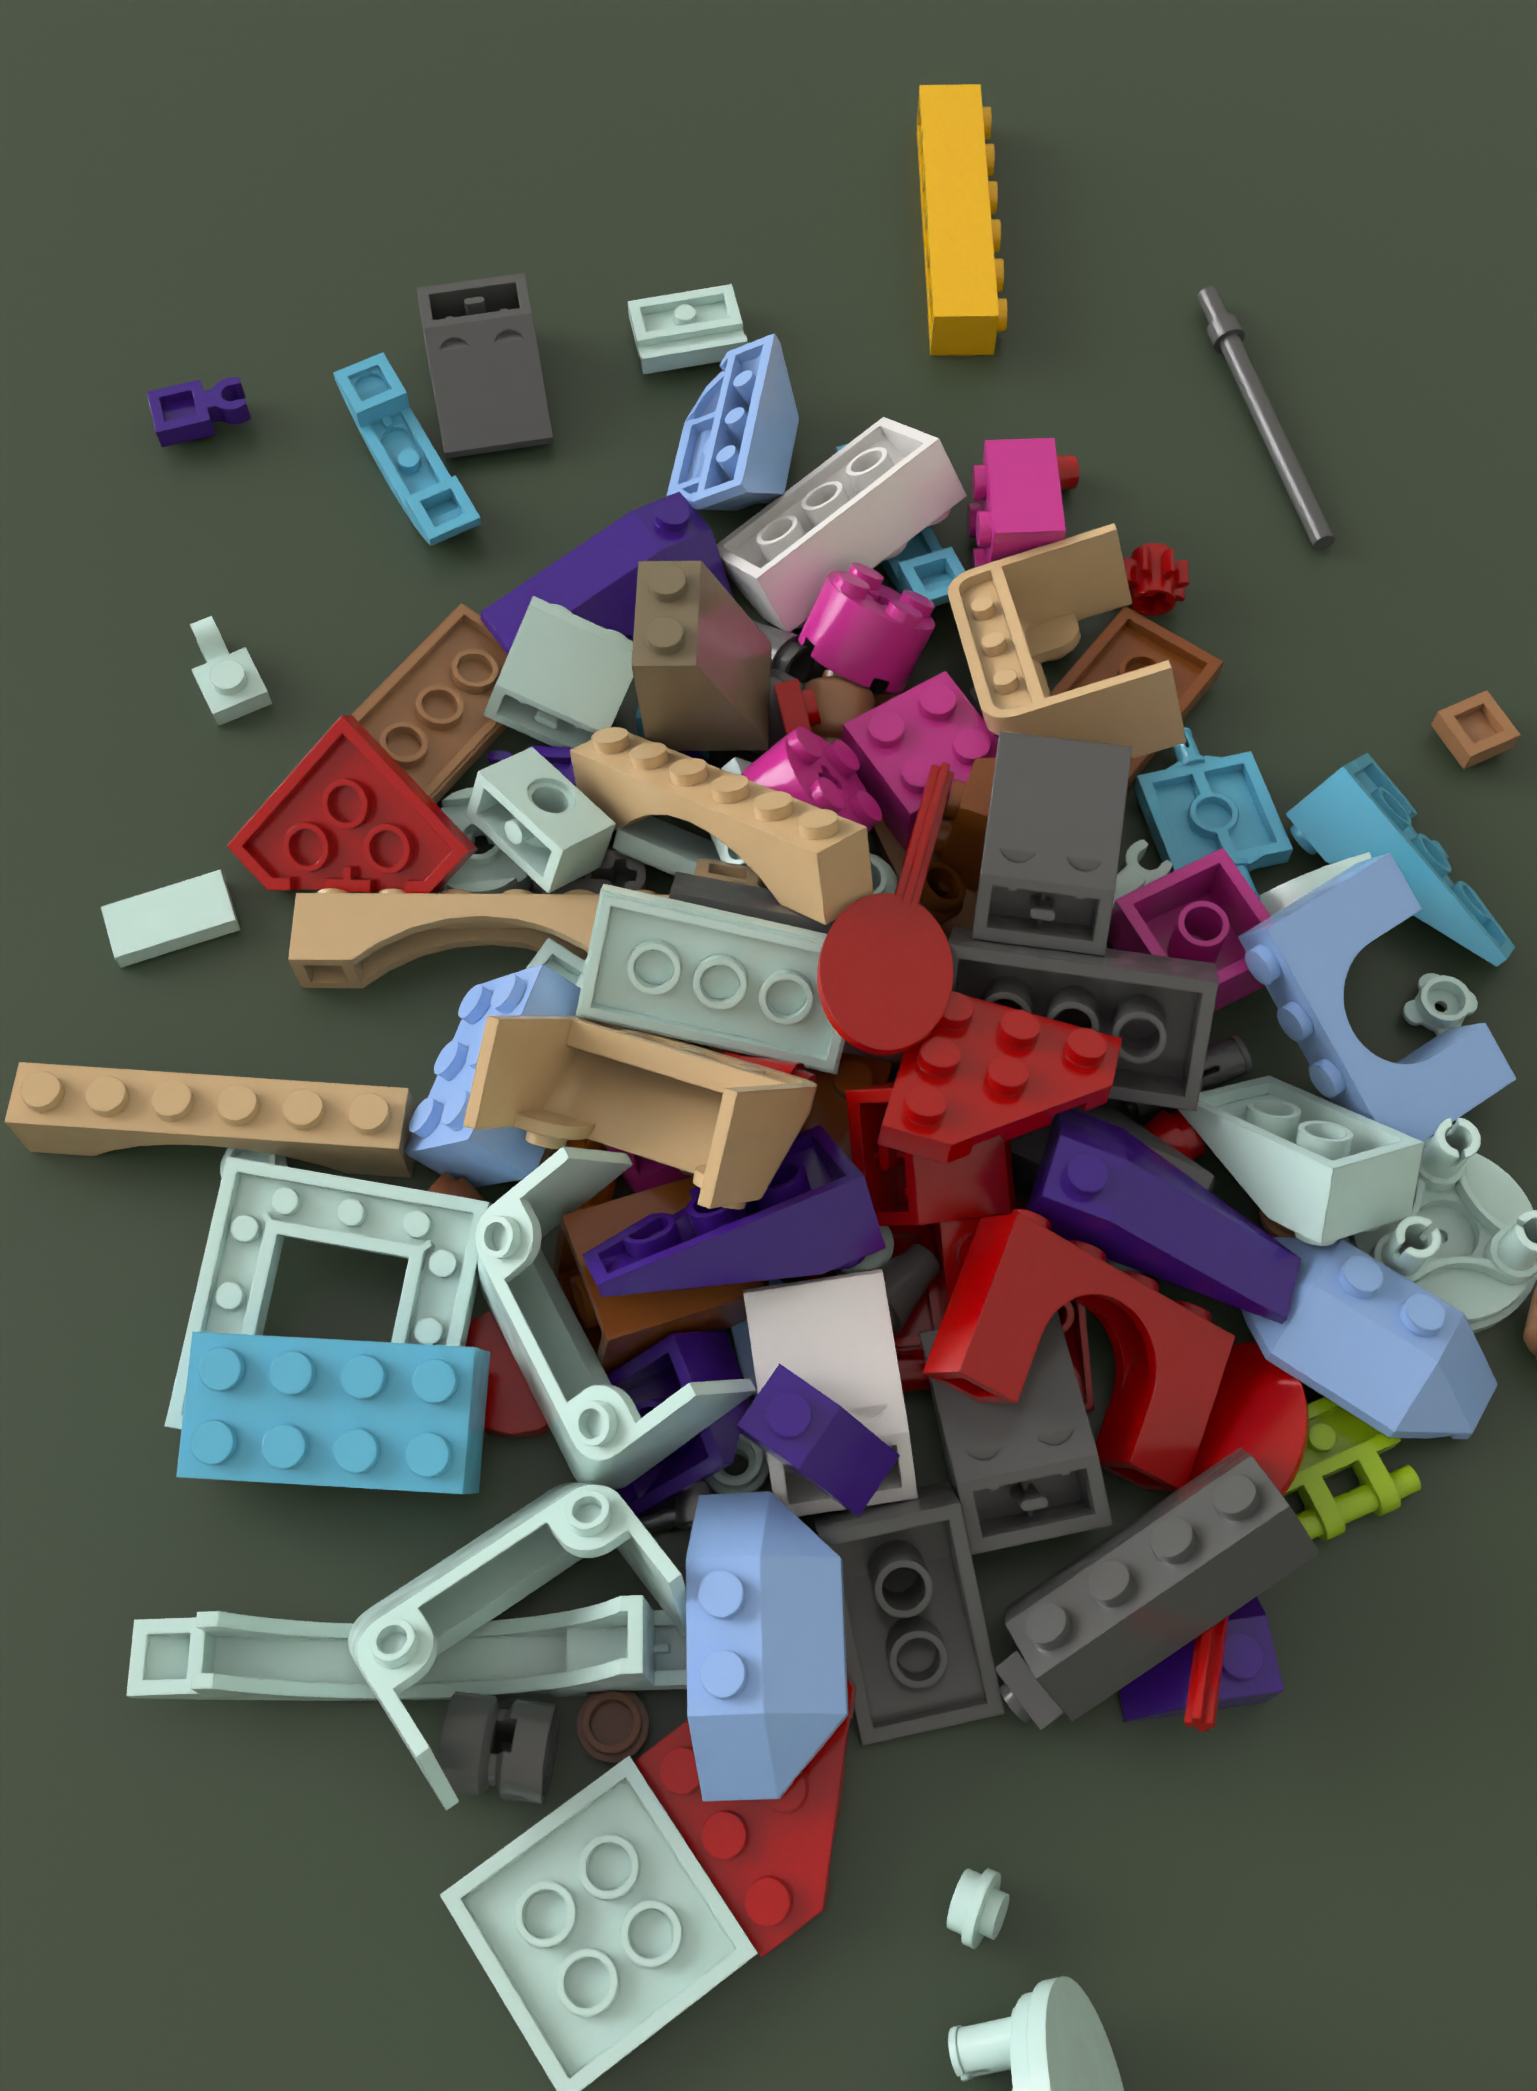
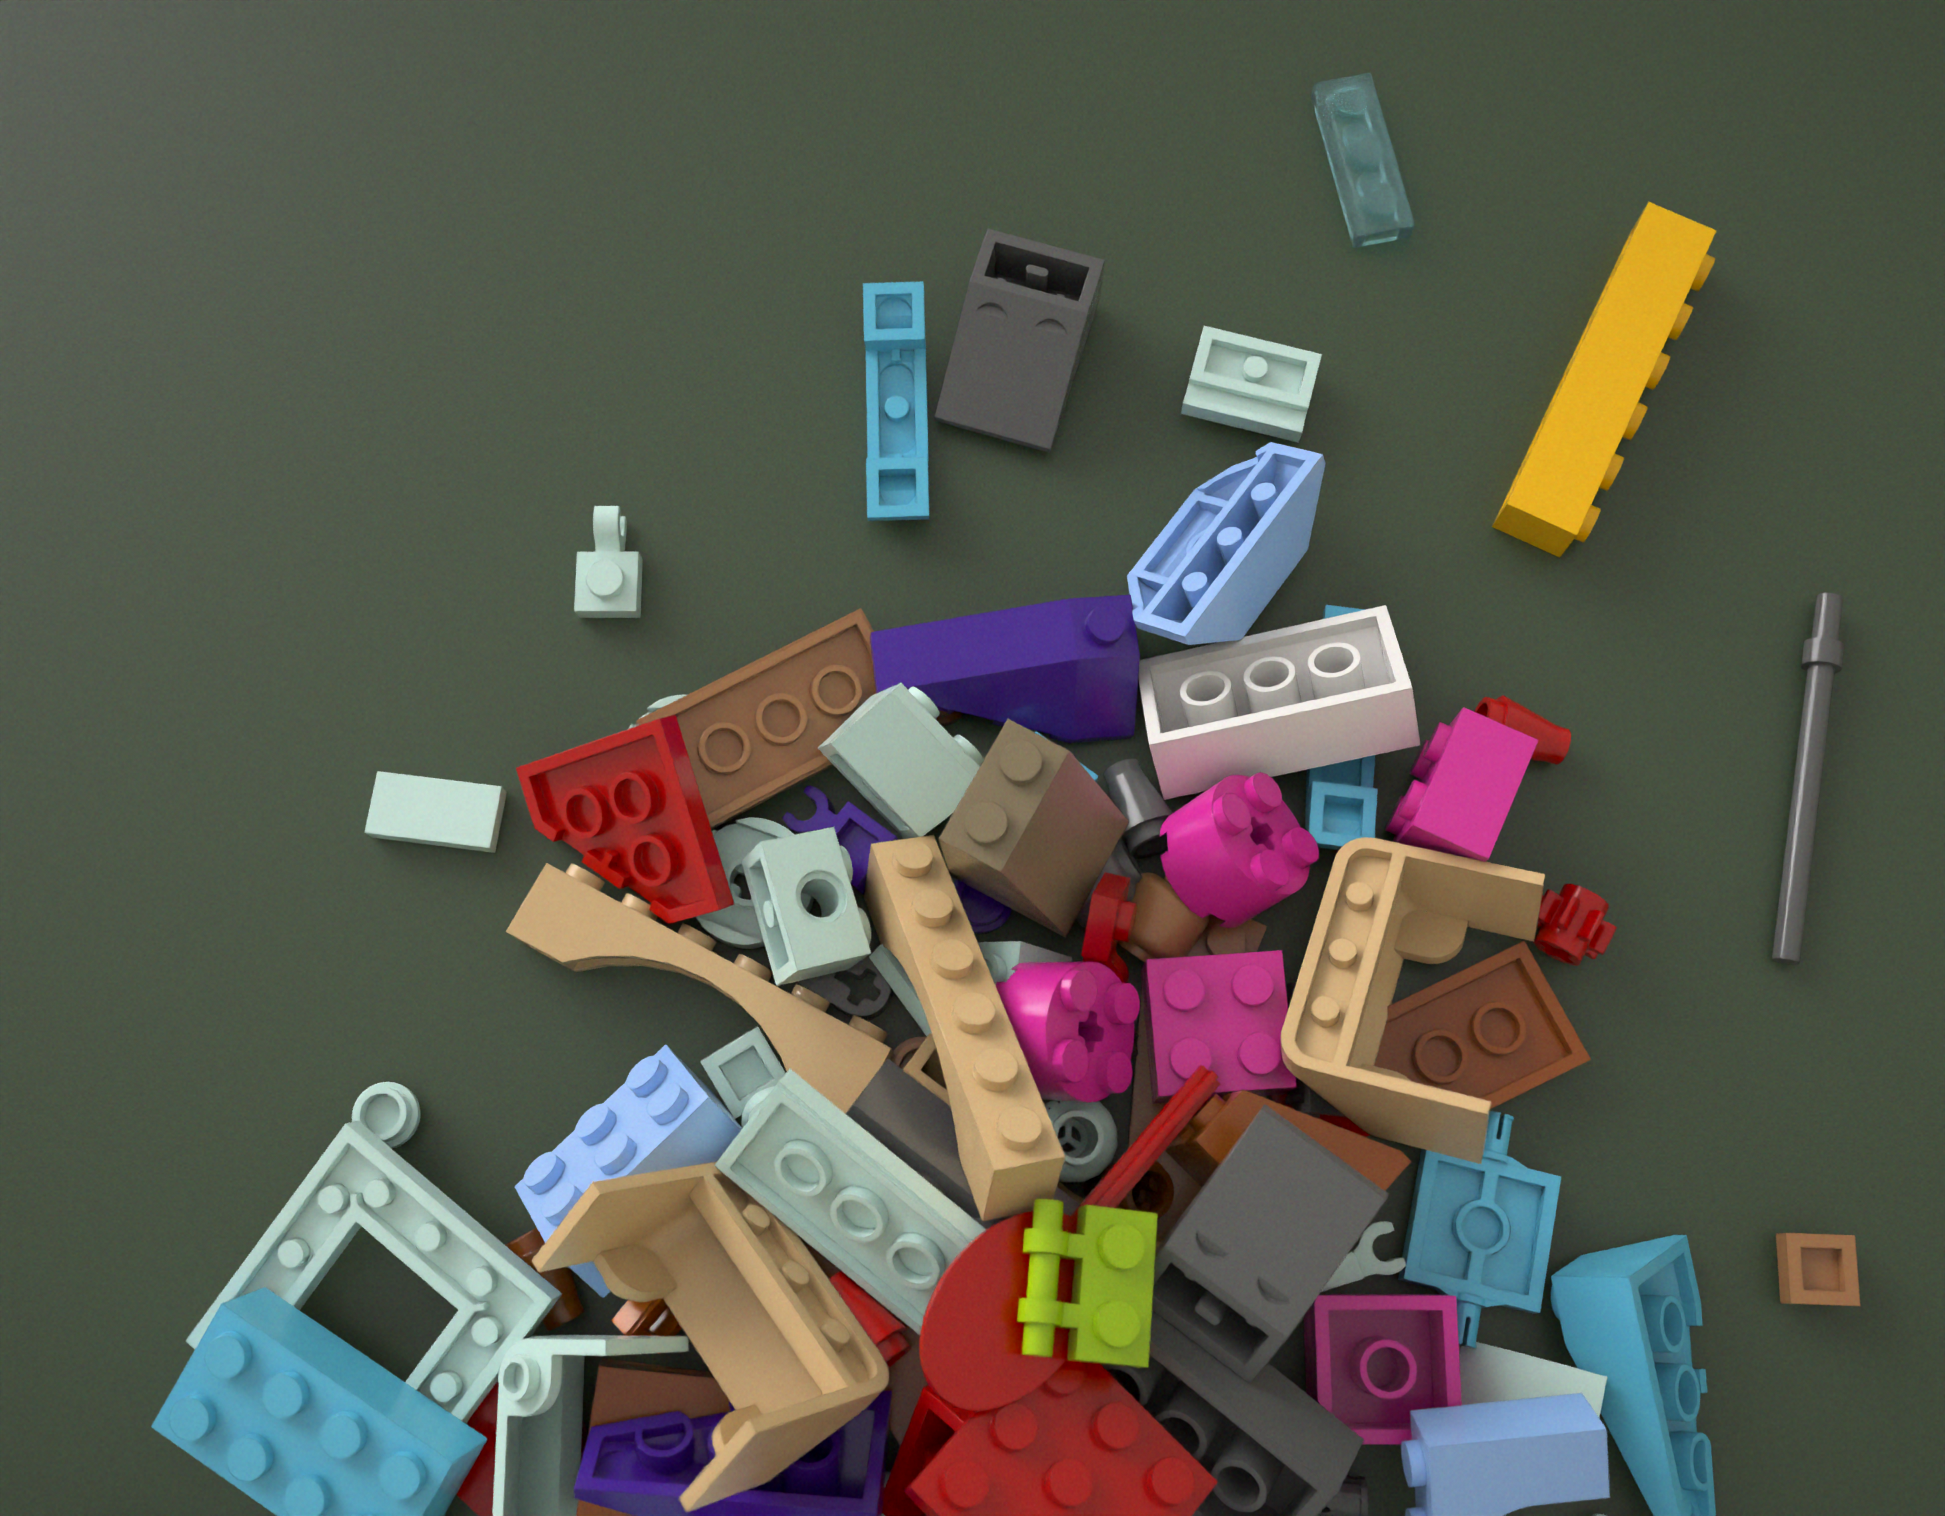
camera: 30 degrees right, 10 degrees up
(116, 1109) = (367, 1056): tan arch -> none
(188, 412) = (712, 248): dark purple plate -> none
(685, 154) = (1362, 160): none -> clear light blue plate
(955, 922) = (1110, 1284): none -> lime plate

